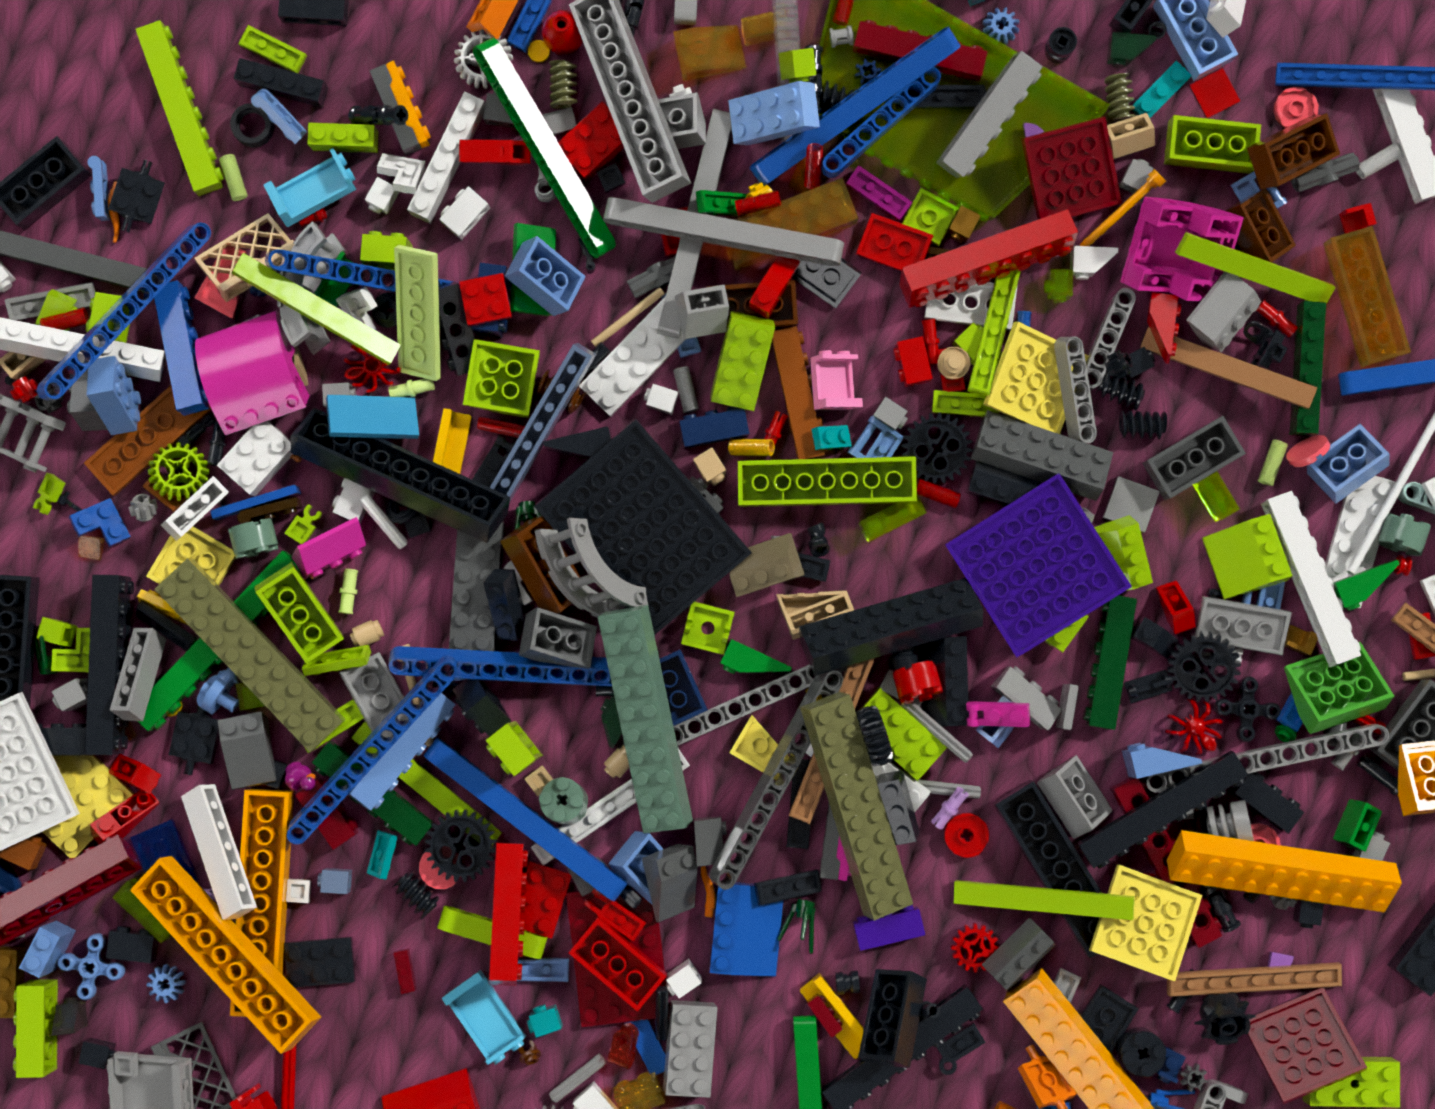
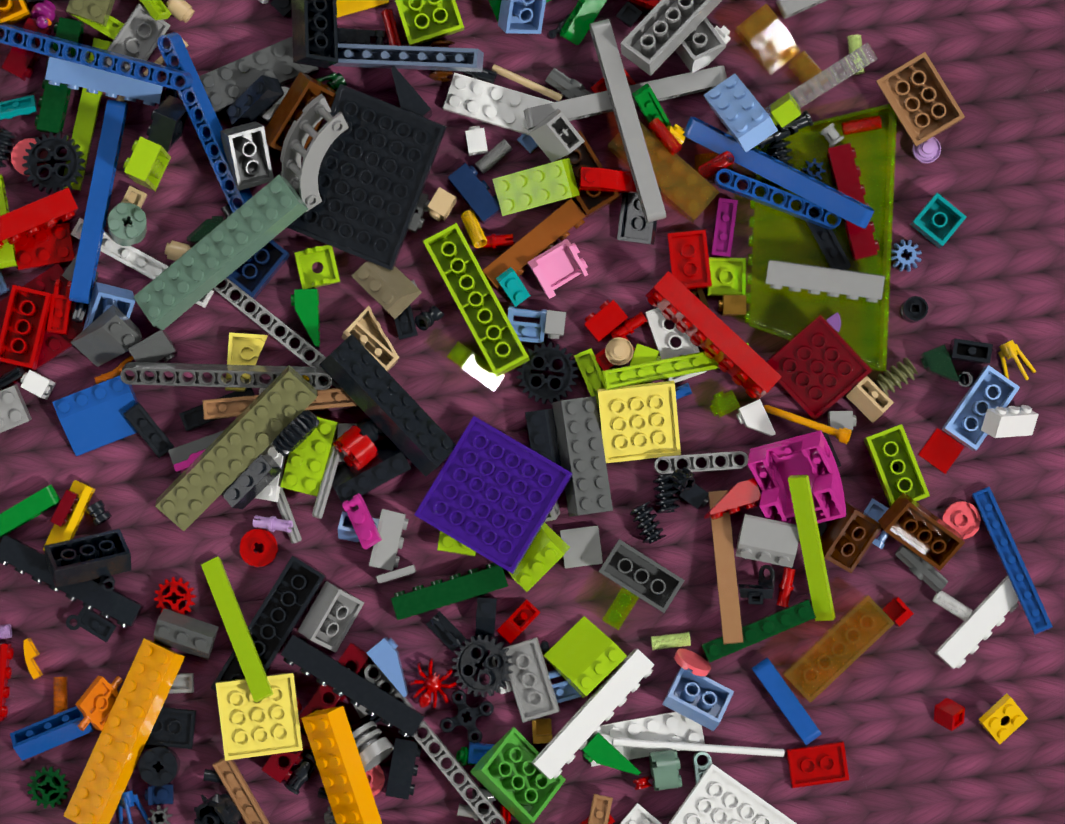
camera: 60 degrees right, 0 degrees up
(805, 910) = (137, 451): dark green plant -> none
(889, 929) = (156, 523): dark purple brick -> none
(938, 496) = (515, 391): red piece -> none
(1068, 380) = (650, 447): light grey beam -> none
(1162, 90) = (920, 407): teal plate -> none

